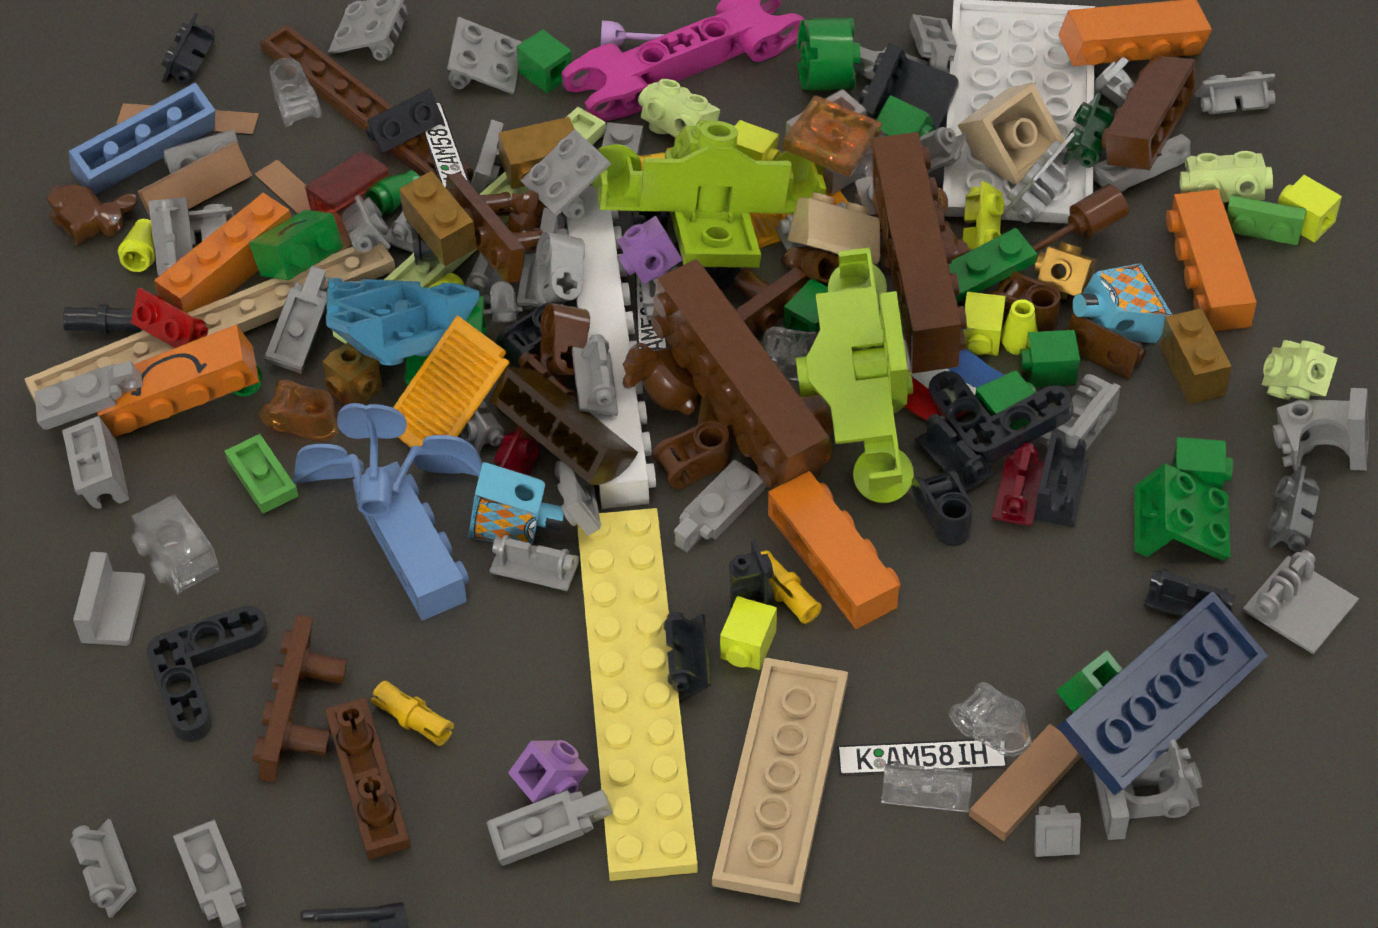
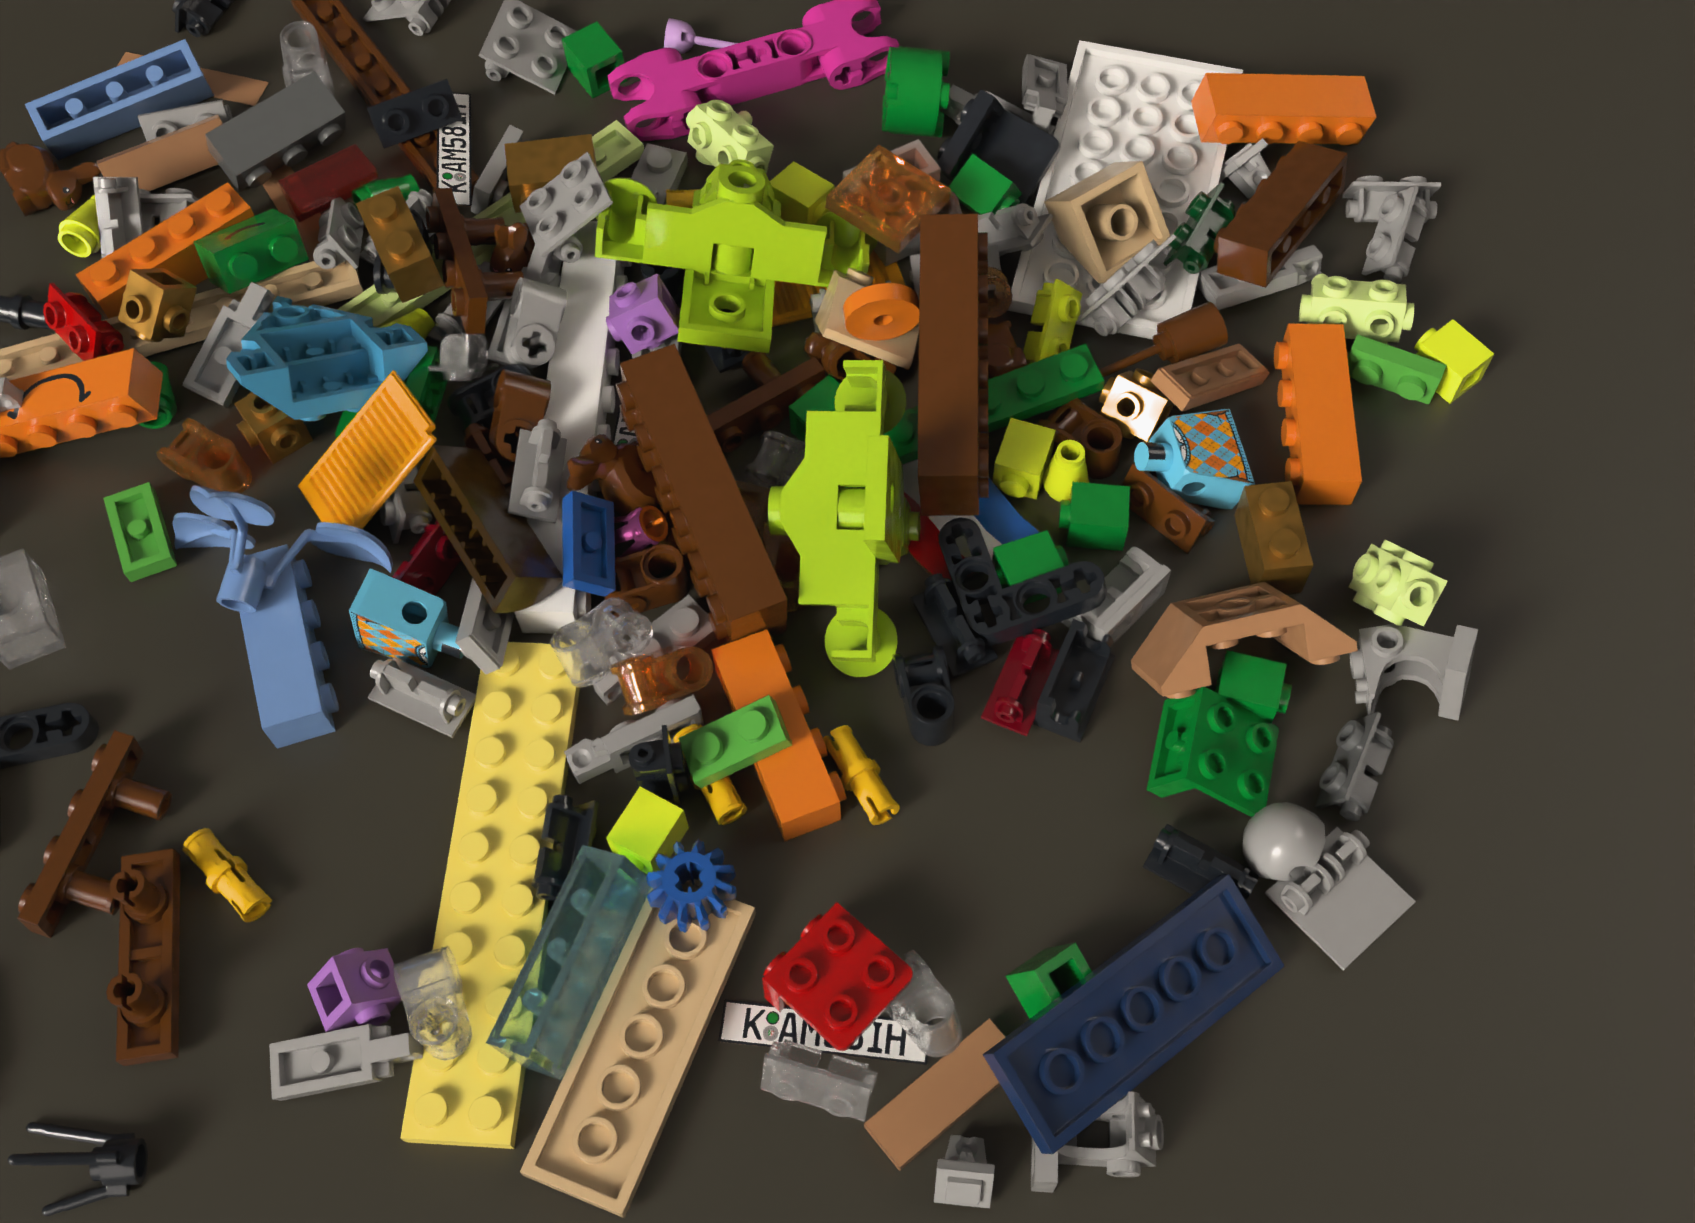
camera: 10 degrees right, 10 degrees up
(234, 293) = (156, 304): none -> pearl gold brick
(288, 149) = (277, 132): none -> dark grey brick
(616, 768) = (433, 994): none -> clear piece
(650, 425) = (588, 543): none -> blue plate
(678, 498) = (598, 641): none -> clear piece
(688, 407) = (644, 526): none -> piece
(713, 572) = (611, 751): none -> light grey hinge
(716, 724) = (570, 962): none -> clear light blue brick
(729, 519) = (653, 679): none -> clear orange piece
(798, 658) = (692, 866): none -> blue gear
(807, 552) = (735, 741): none -> bright green plate
(853, 218) = (881, 311): none -> orange piece
(909, 570) = (861, 775): none -> yellow pin
(926, 705) = (836, 977): none -> red bracket
(1120, 242) = (1209, 377): none -> medium nougat tile
(1140, 436) = (1175, 650): none -> medium nougat slope
(1246, 105) = (1400, 218): none -> light grey hinge
(1246, 565) = (1282, 839): none -> light grey hair

